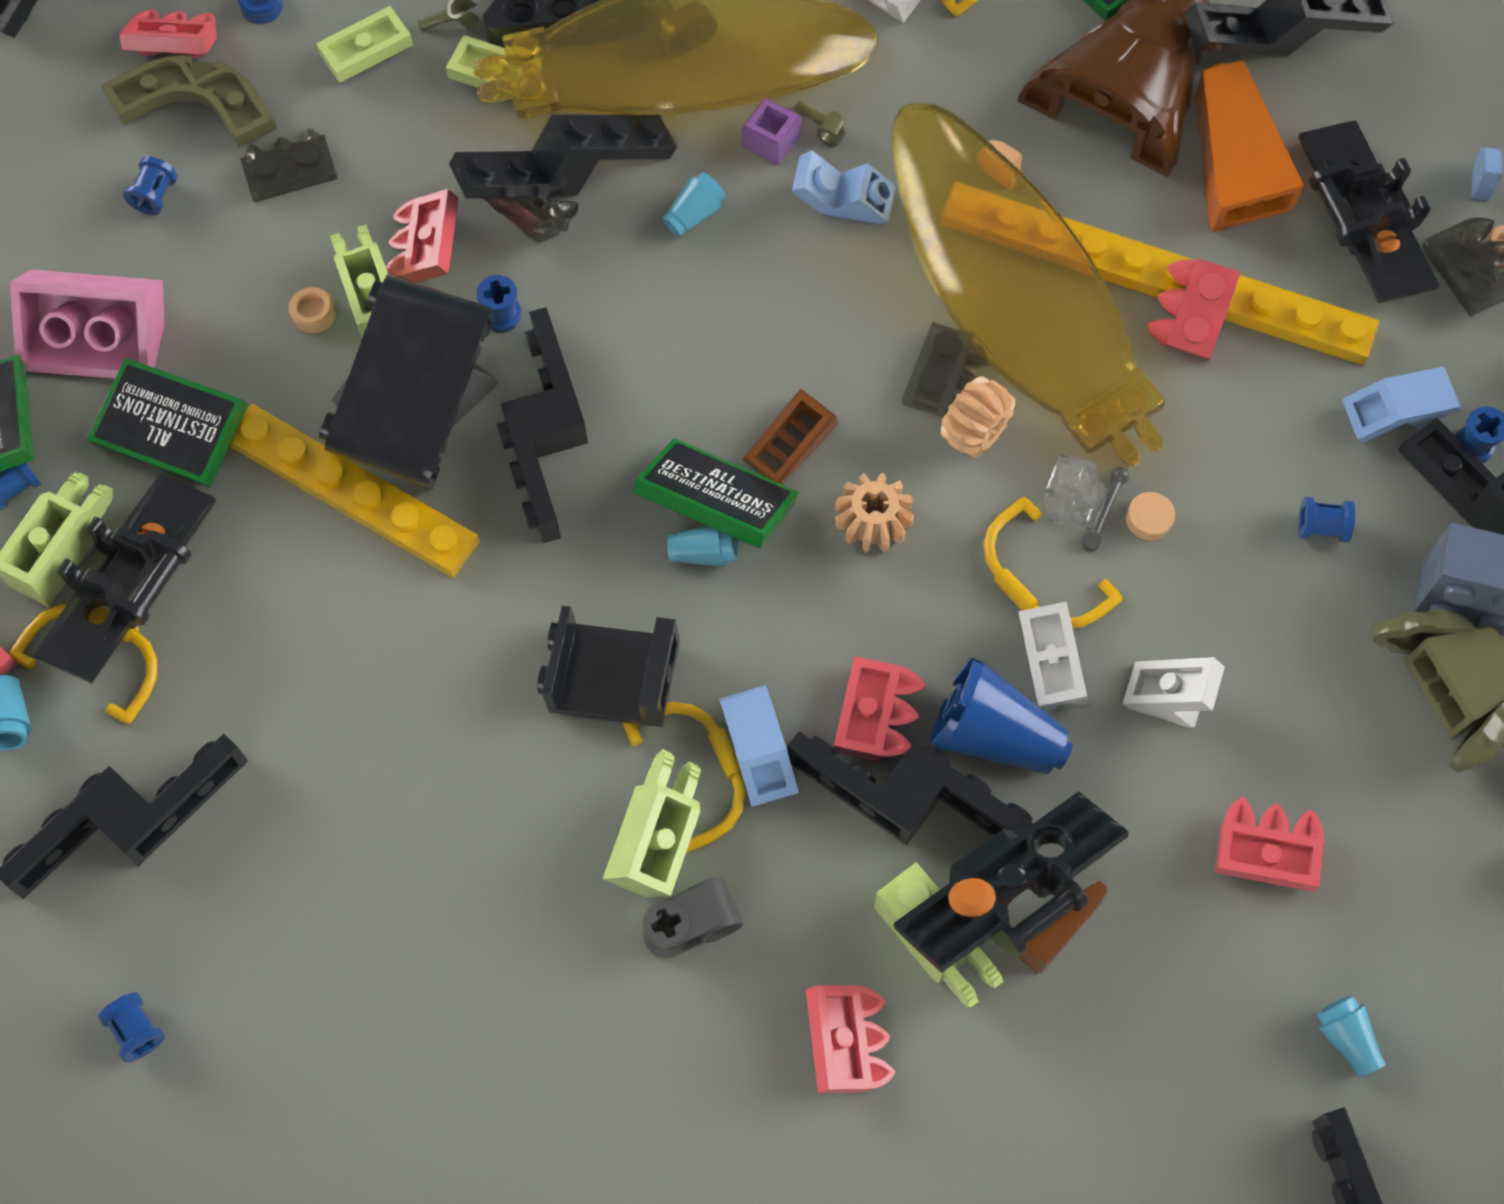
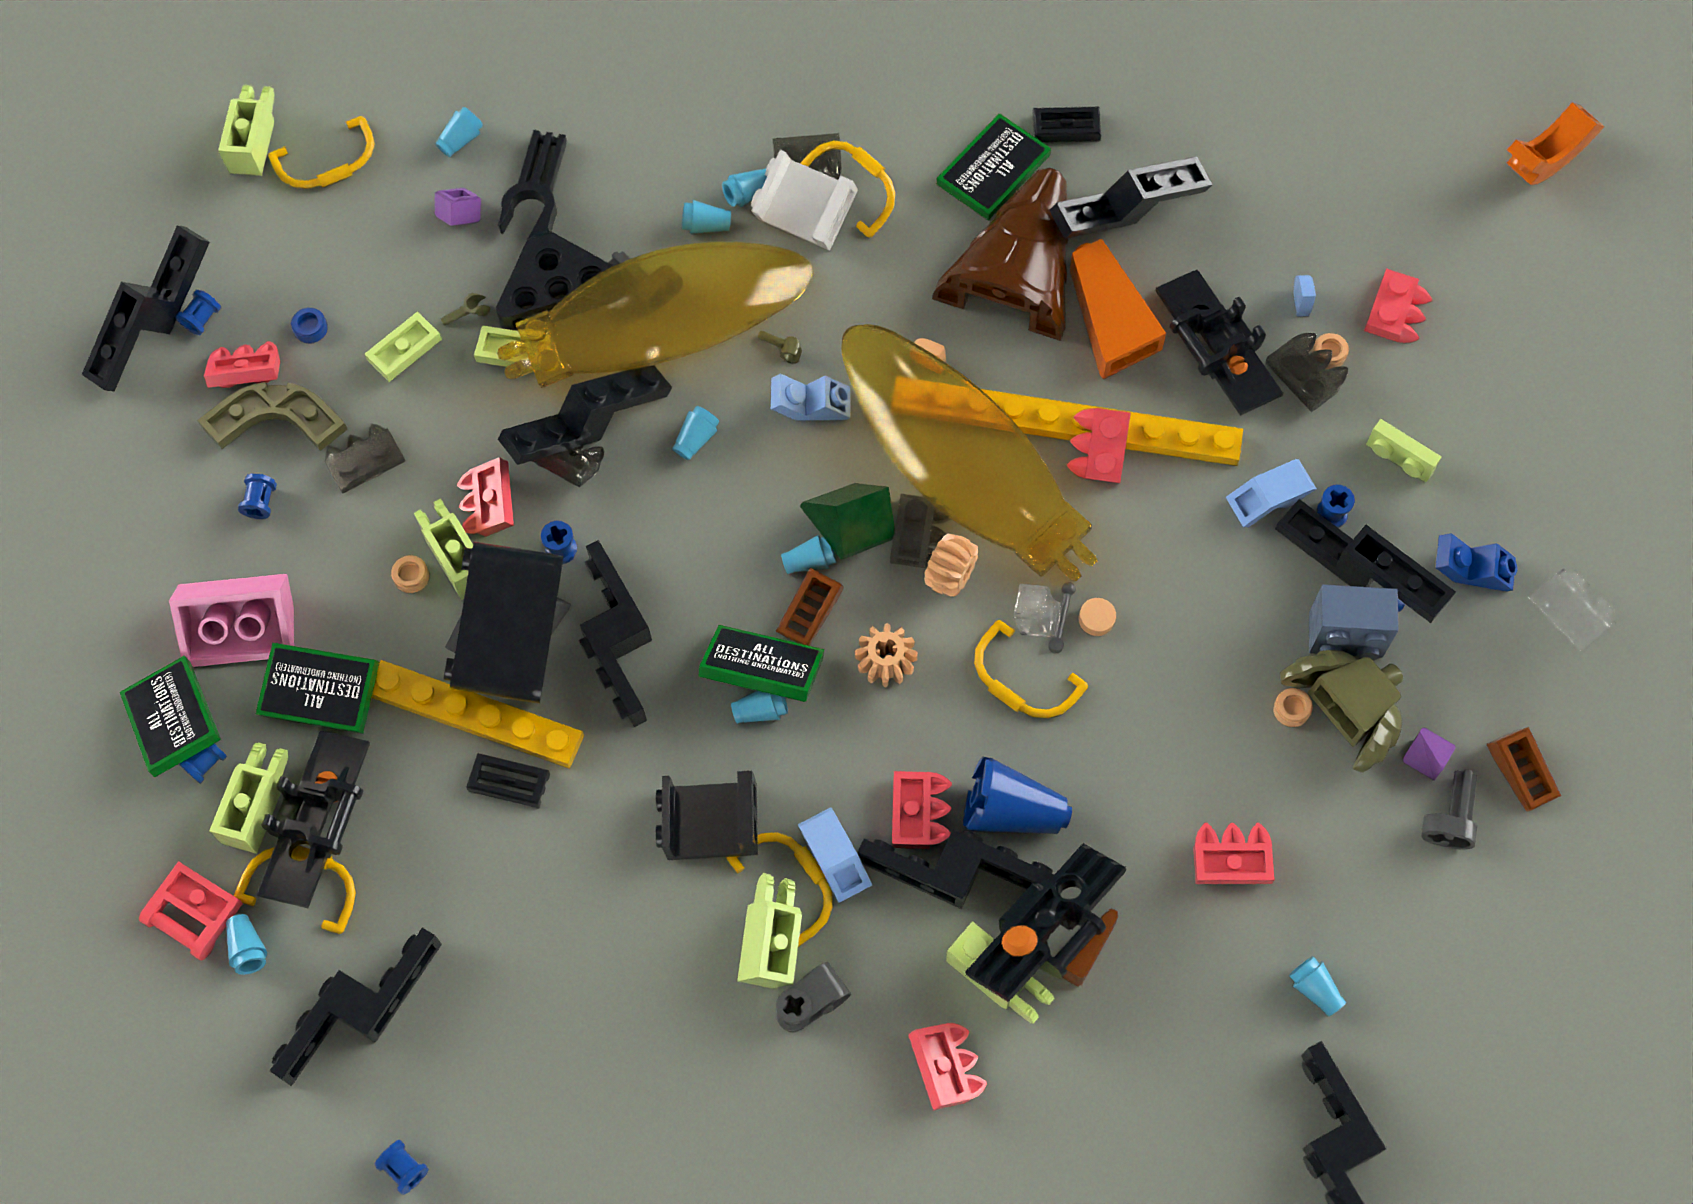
camera: 10 degrees left, 0 degrees up
(407, 594) = (529, 800): none -> black tile
(771, 131) = (743, 360): medium lavender slope -> none
(811, 373) = (811, 554): none -> medium azure cone
(866, 339) = (852, 517): none -> dark green slope
(1053, 656) = (1044, 742): white hinge -> none
(1174, 688) = (1139, 749): white slope -> none
(1326, 519) = (1230, 595): blue bush -> none
(1381, 675) = (1293, 707): none -> light nougat tile

